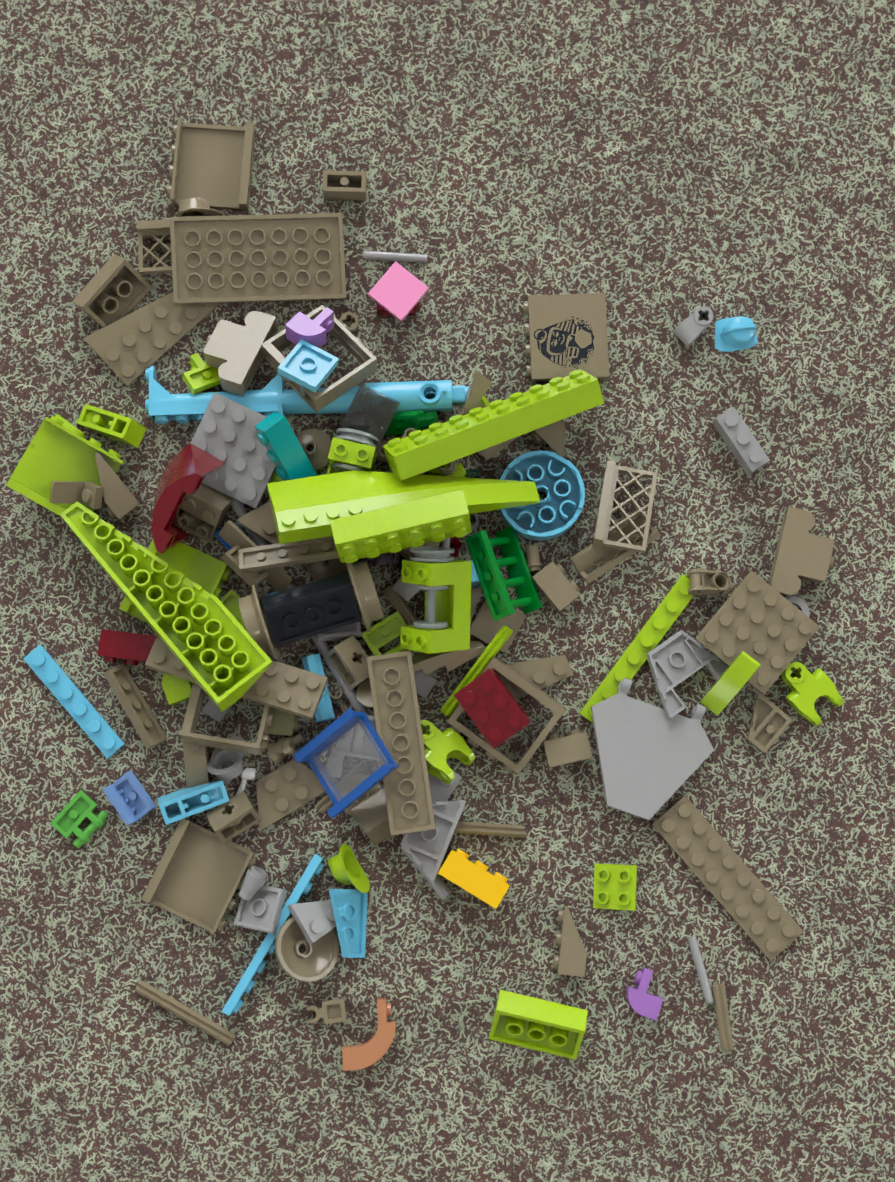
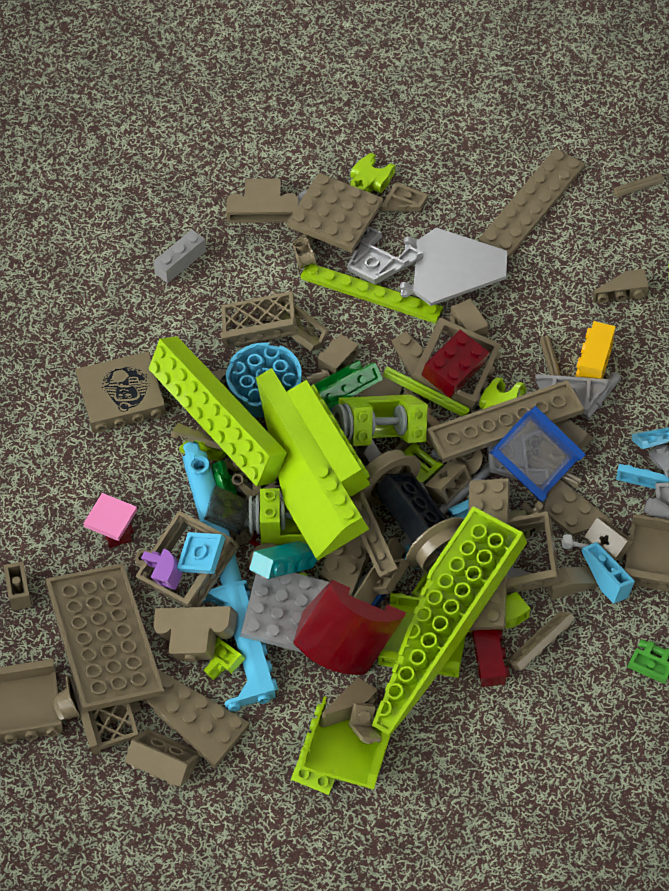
camera: 100 degrees left, 25 degrees down
(74, 701) = (551, 694): medium azure plate -> none
(112, 425) = (290, 726): lime slope -> none
(129, 798) = (620, 624): medium blue bracket -> none
(226, 763) = (567, 554): light grey piece -> none
(348, 870) = (622, 450): lime piece -> none
(391, 256) = (74, 538): light grey bar -> none
(615, 886) = (566, 268): lime hinge -> none
(639, 999) = (644, 235): medium lavender brick -> none
(692, 327) = (87, 306): light grey piece -> none
(700, 968) = (613, 203): light grey bar -> none
(730, 683) = (381, 220): lime slope -> none
(735, 334) = (86, 281): medium azure piece -> none

